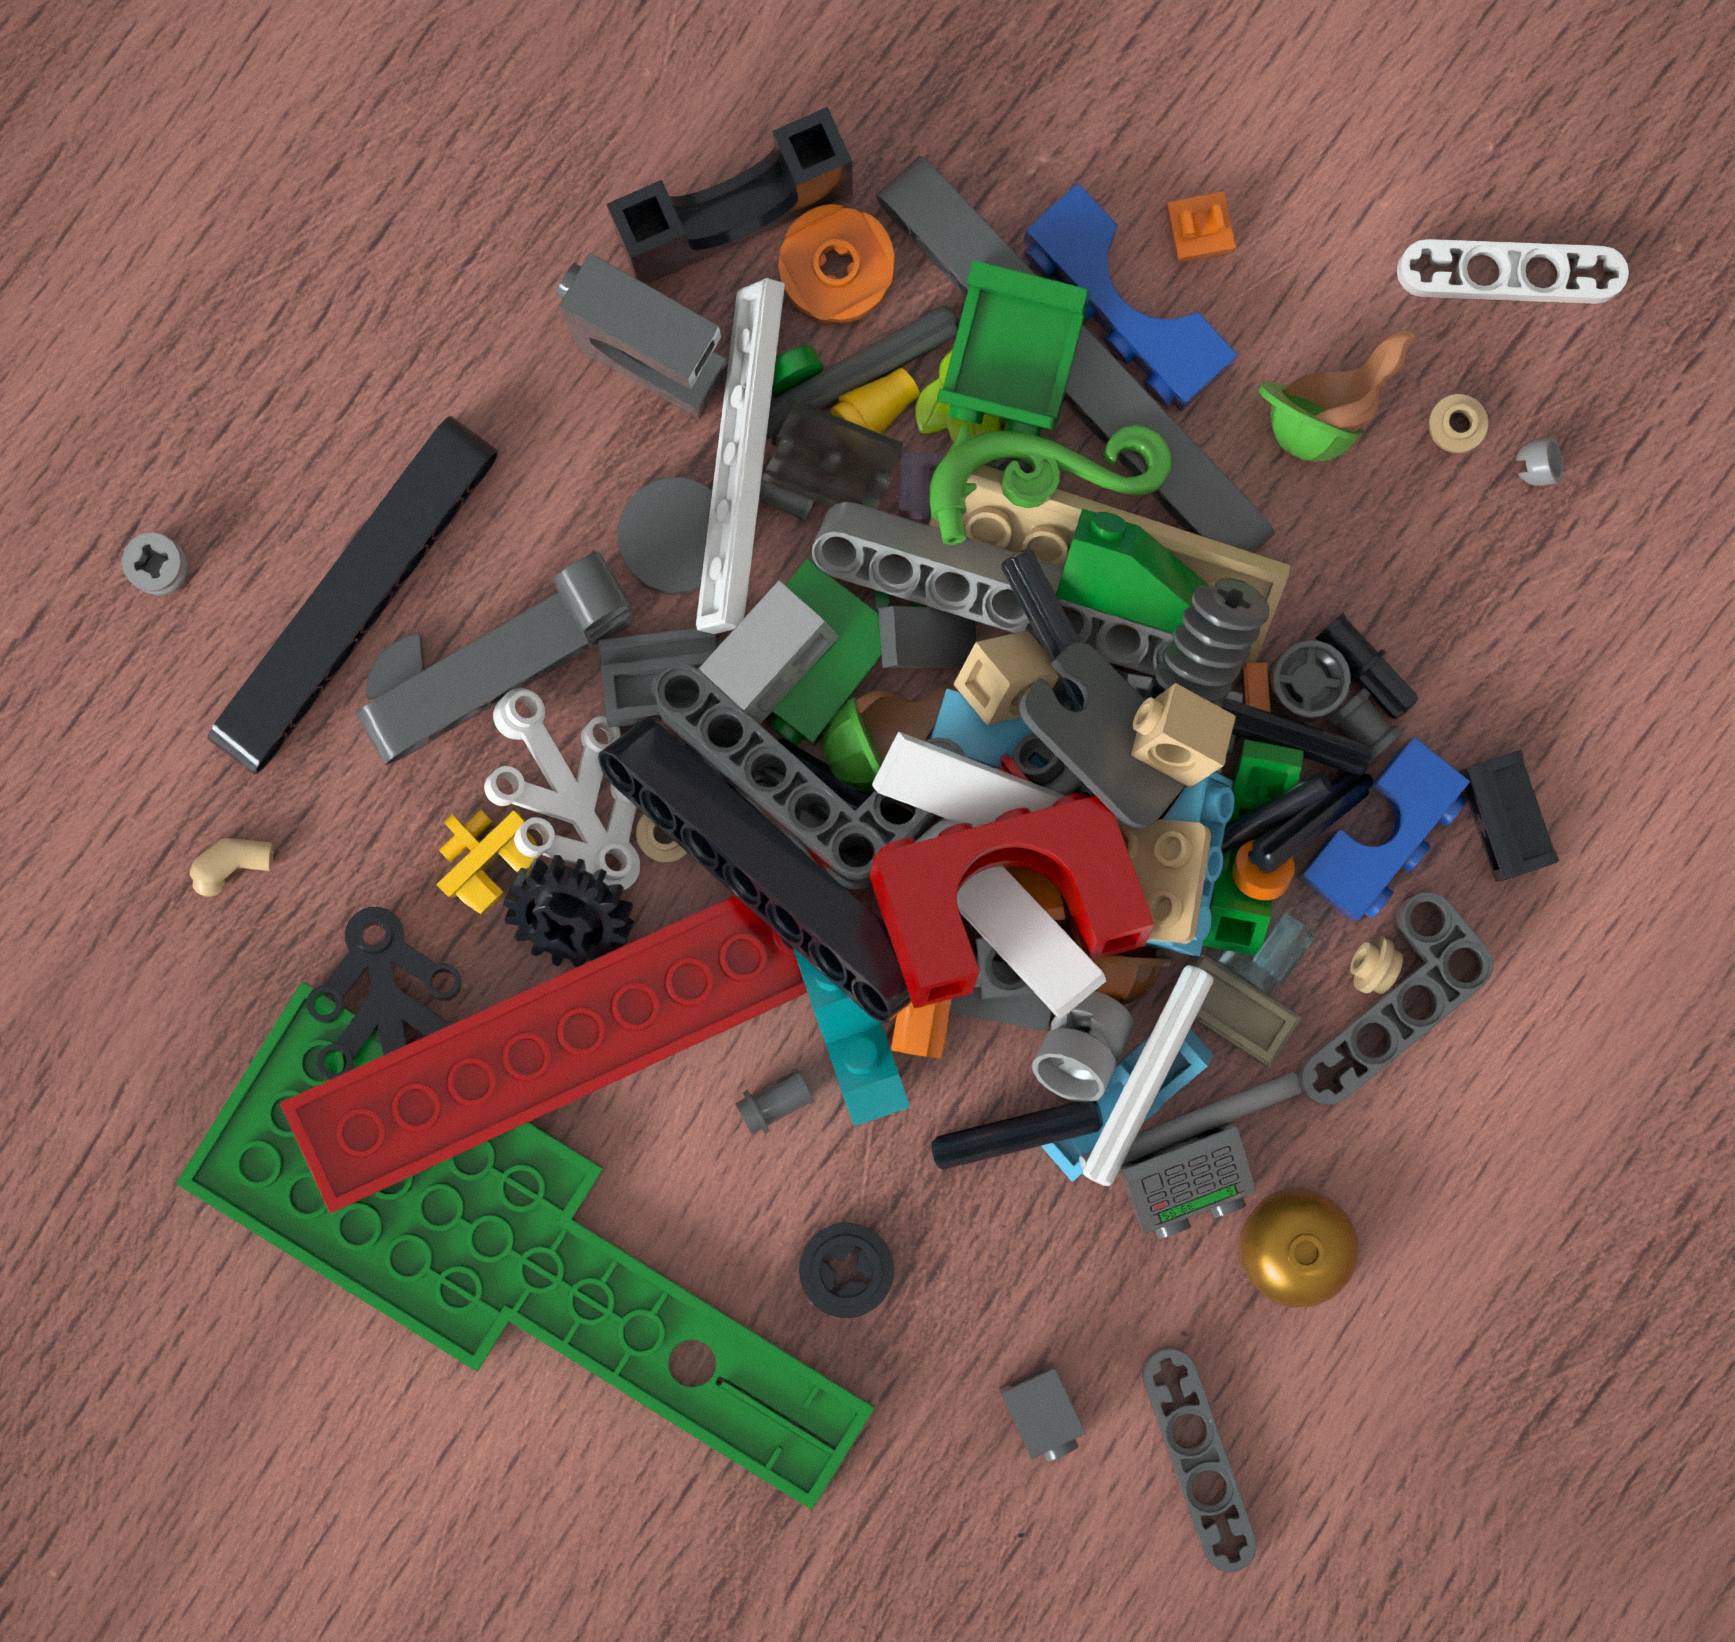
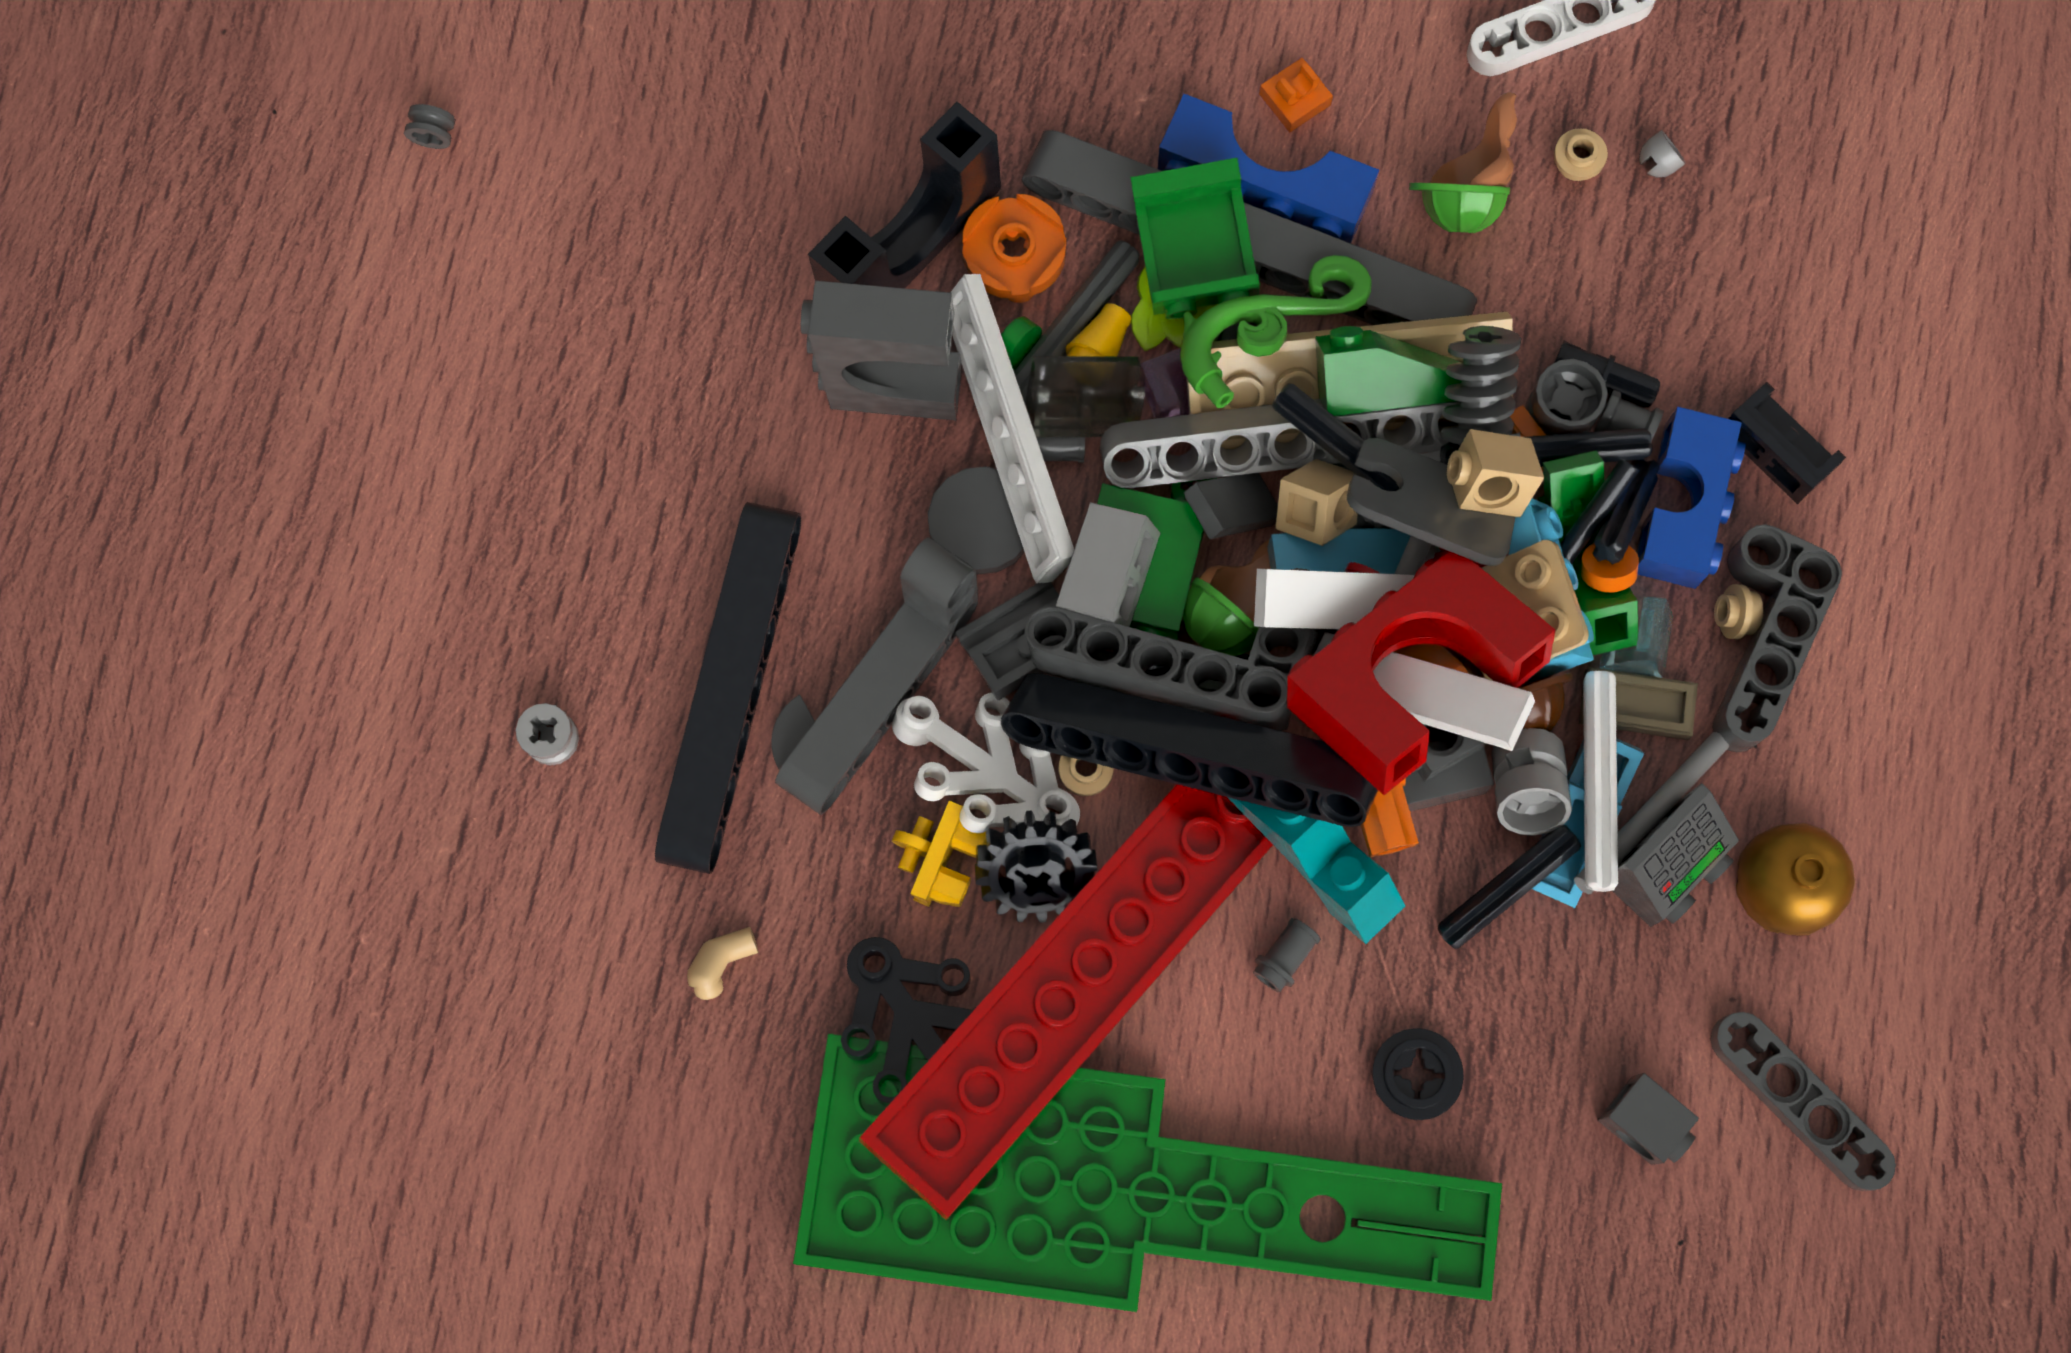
camera: 20 degrees left, 10 degrees down
(1031, 746) = (1379, 549): dark grey hinge -> none

